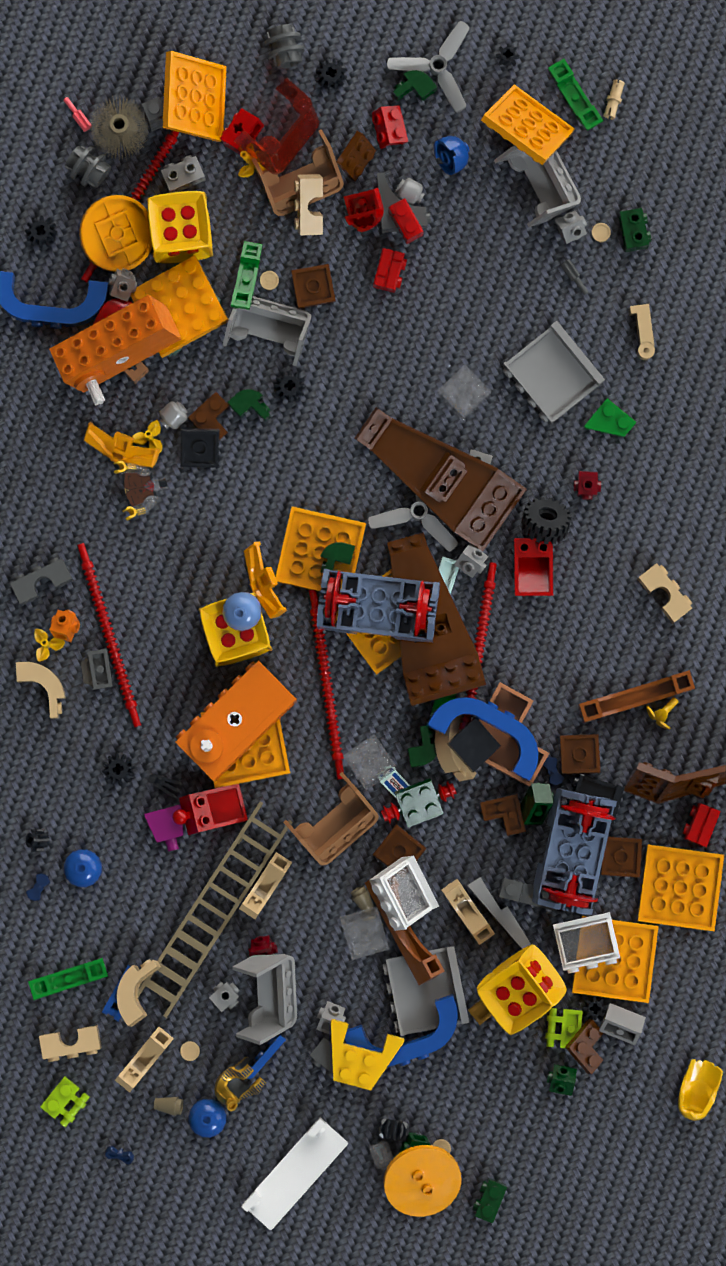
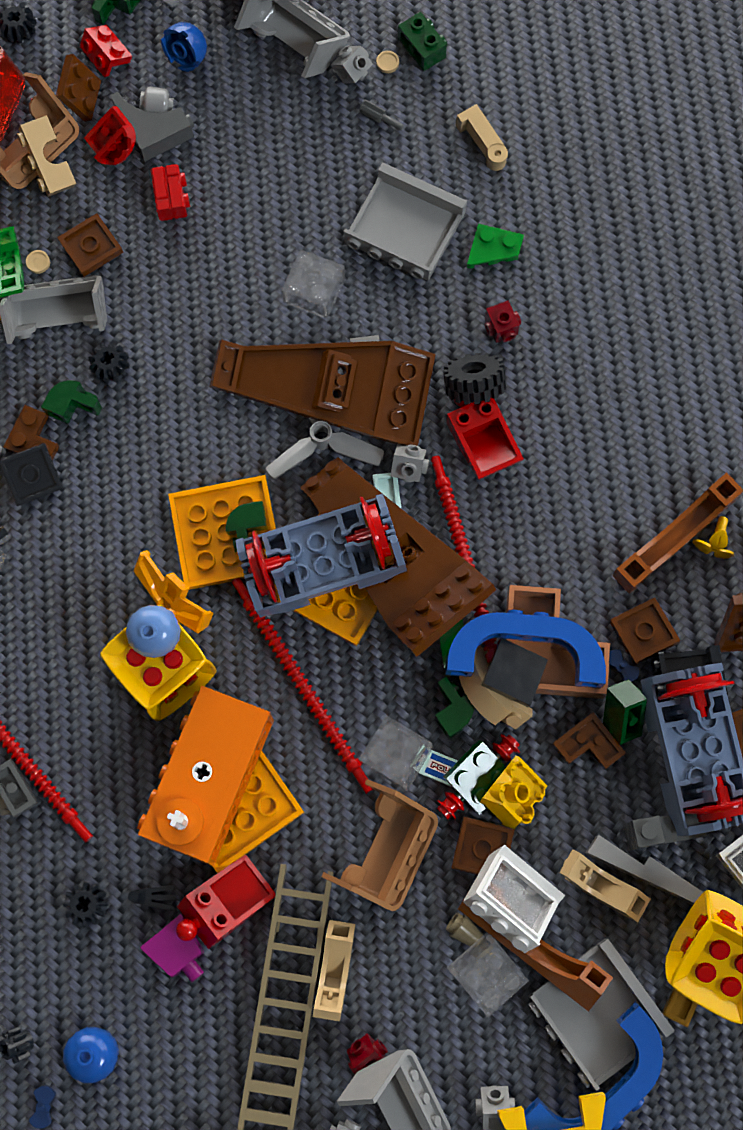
camera: 15 degrees left, 10 degrees down
(405, 221) = (163, 125): red brick -> none
(437, 825) = (515, 794): none -> yellow slope
(657, 578) = (670, 408): tan arch -> none

